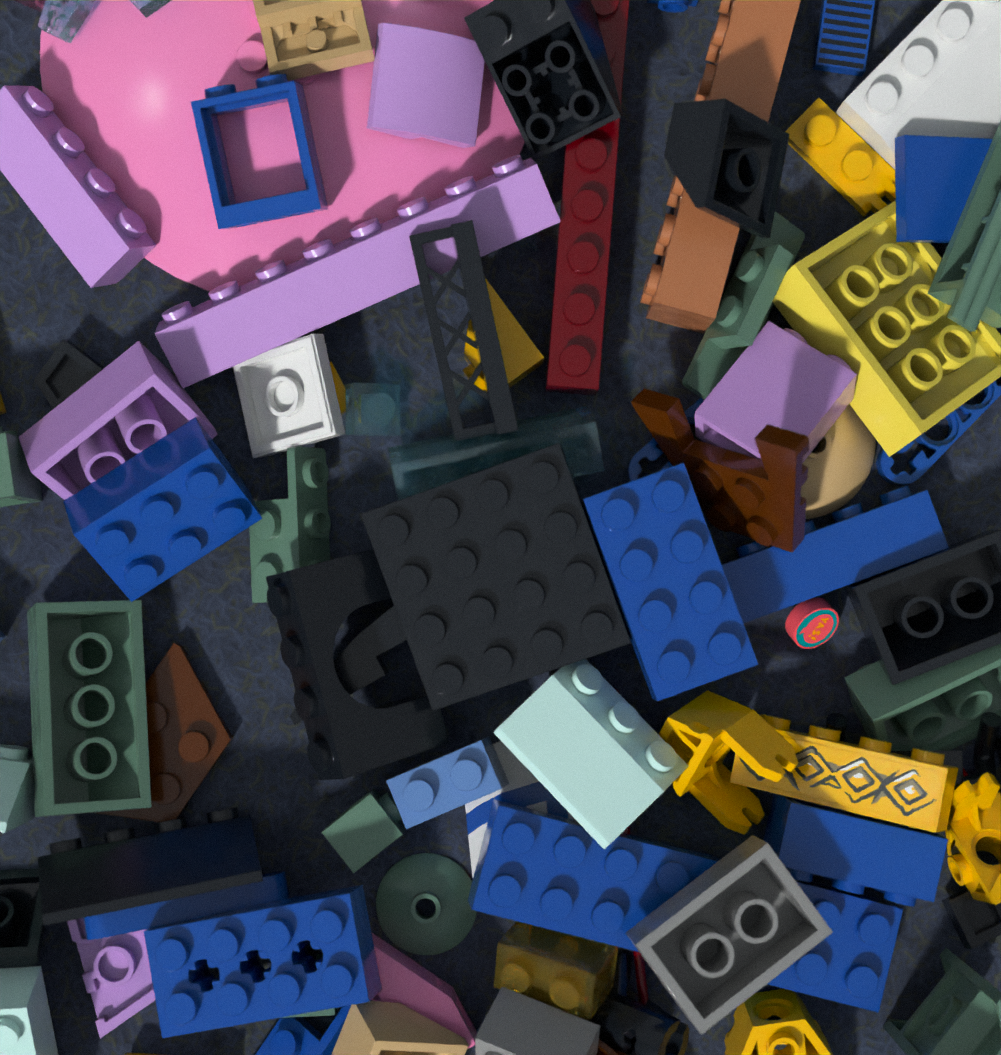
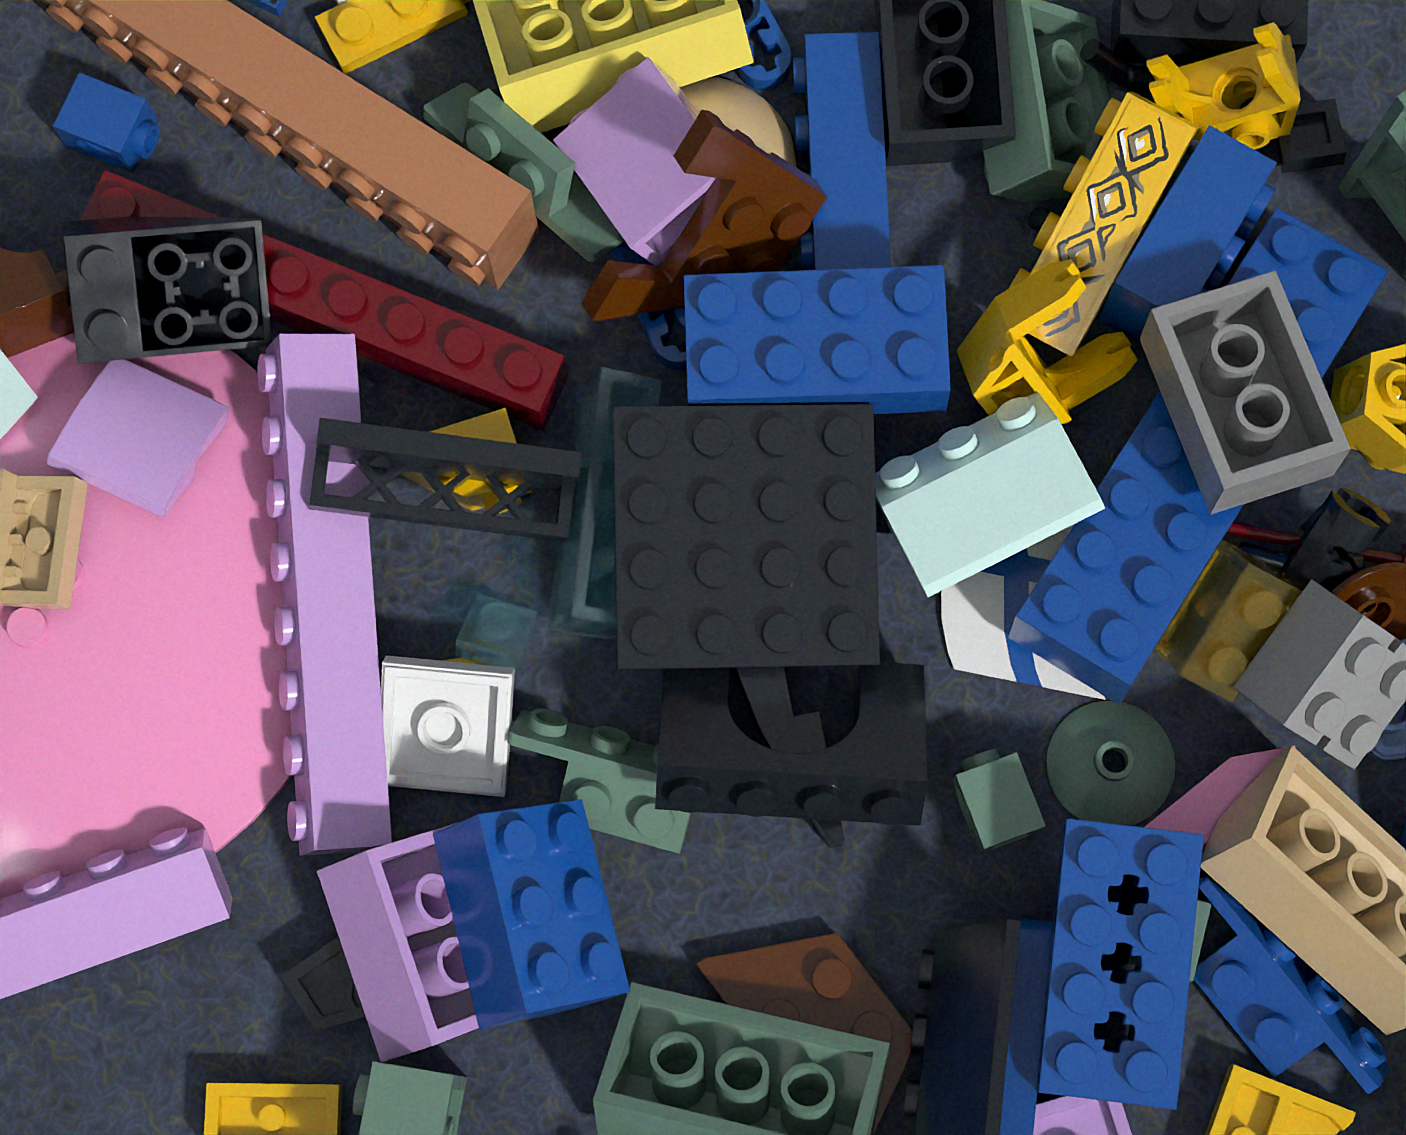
camera: 70 degrees left, 10 degrees down
(227, 100) = (78, 613): blue window -> none
(447, 782) = (971, 681): medium blue brick -> none
(728, 162) = (355, 113): black slope -> none
(812, 623) = (916, 212): coral tile -> none

